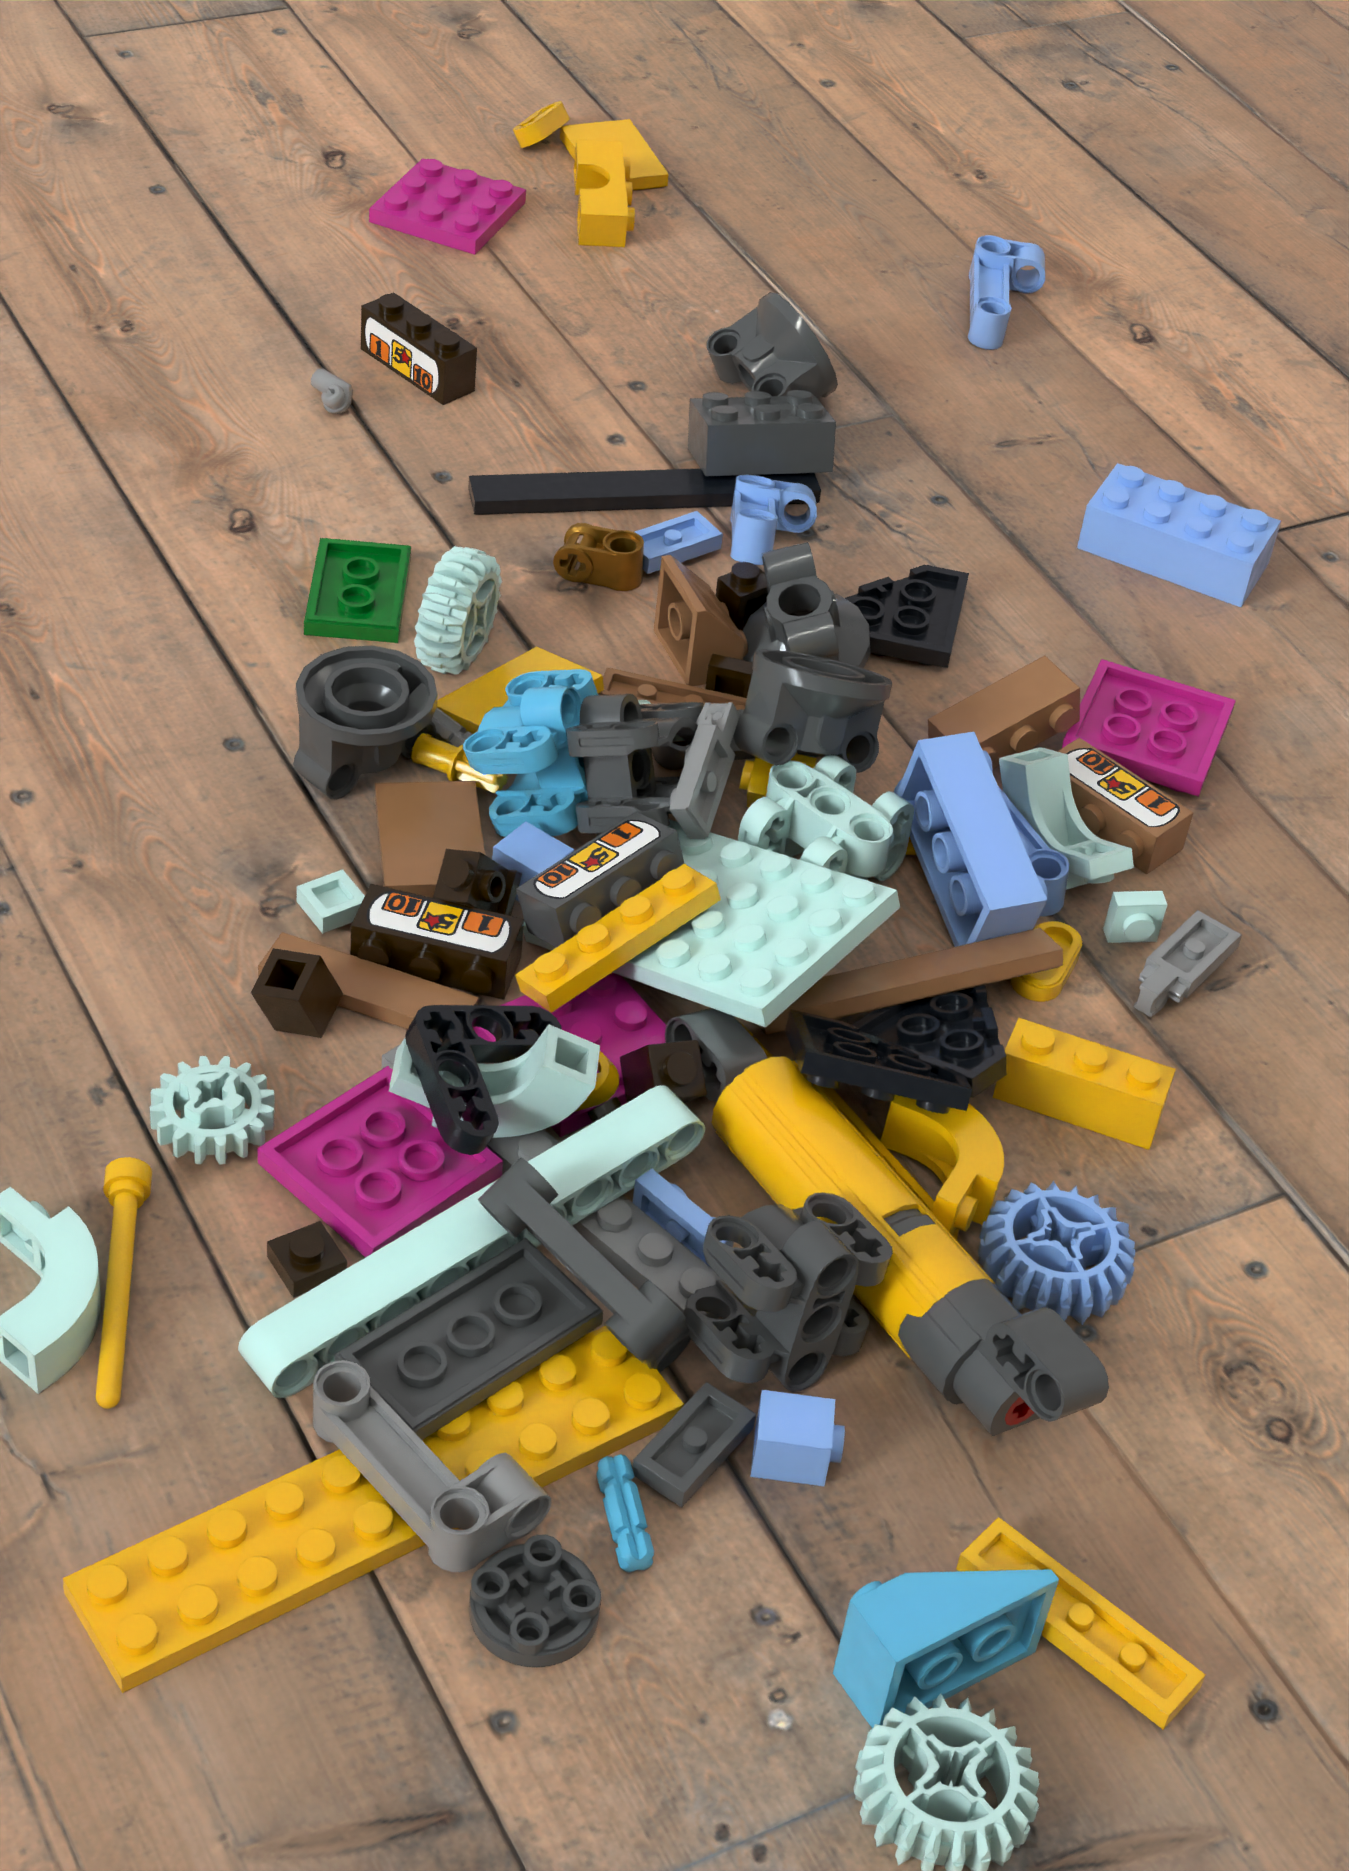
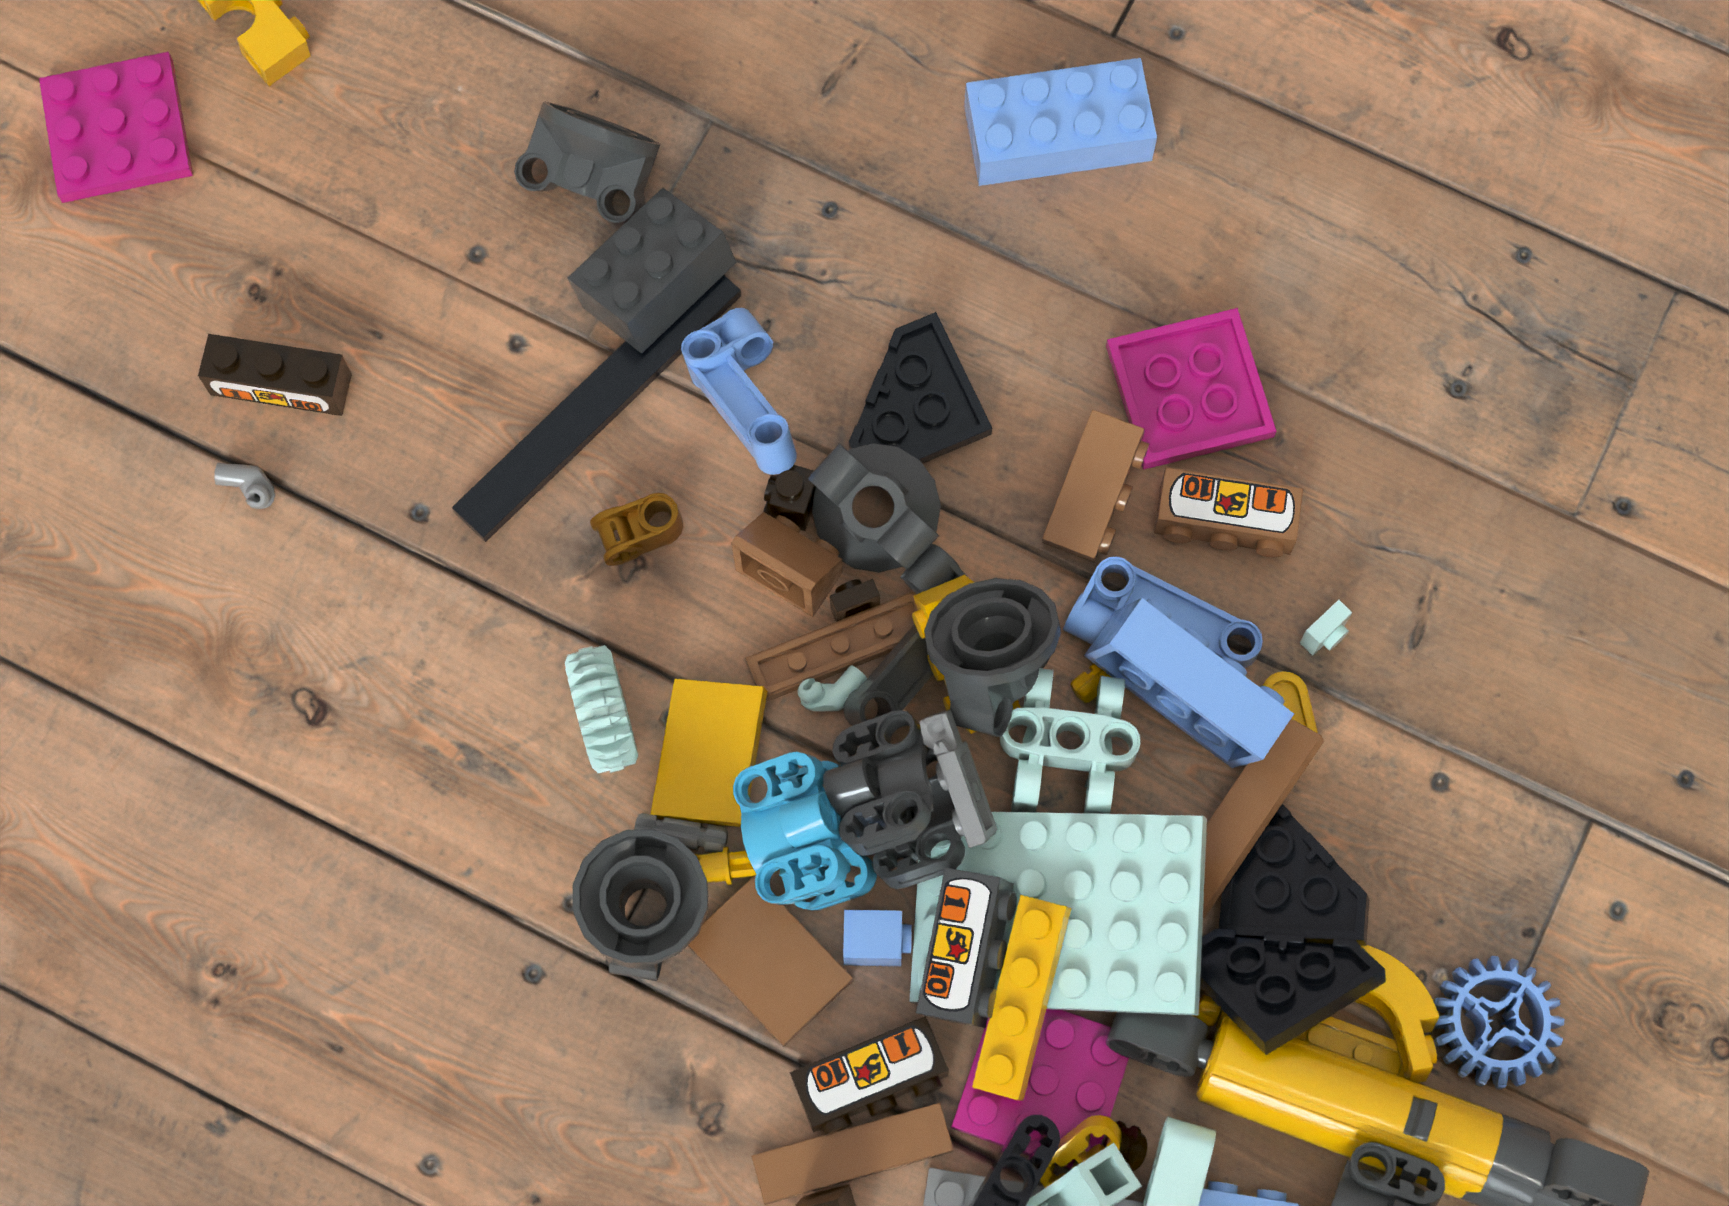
camera: 30 degrees left, 30 degrees up
(330, 900) = (759, 1093): light aqua plate -> none
(358, 590) = (478, 719): green tile -> none
(477, 882) = (862, 1005): dark brown brick -> none
(667, 1064) = (1138, 1089): dark brown brick -> none
(680, 537) = (677, 456): light blue plate -> none
(1042, 792) = (1184, 559): light aqua arch -> none
(1084, 1083) = (1411, 840): yellow brick -> none
(1184, 961) = (1388, 643): light grey hinge -> none

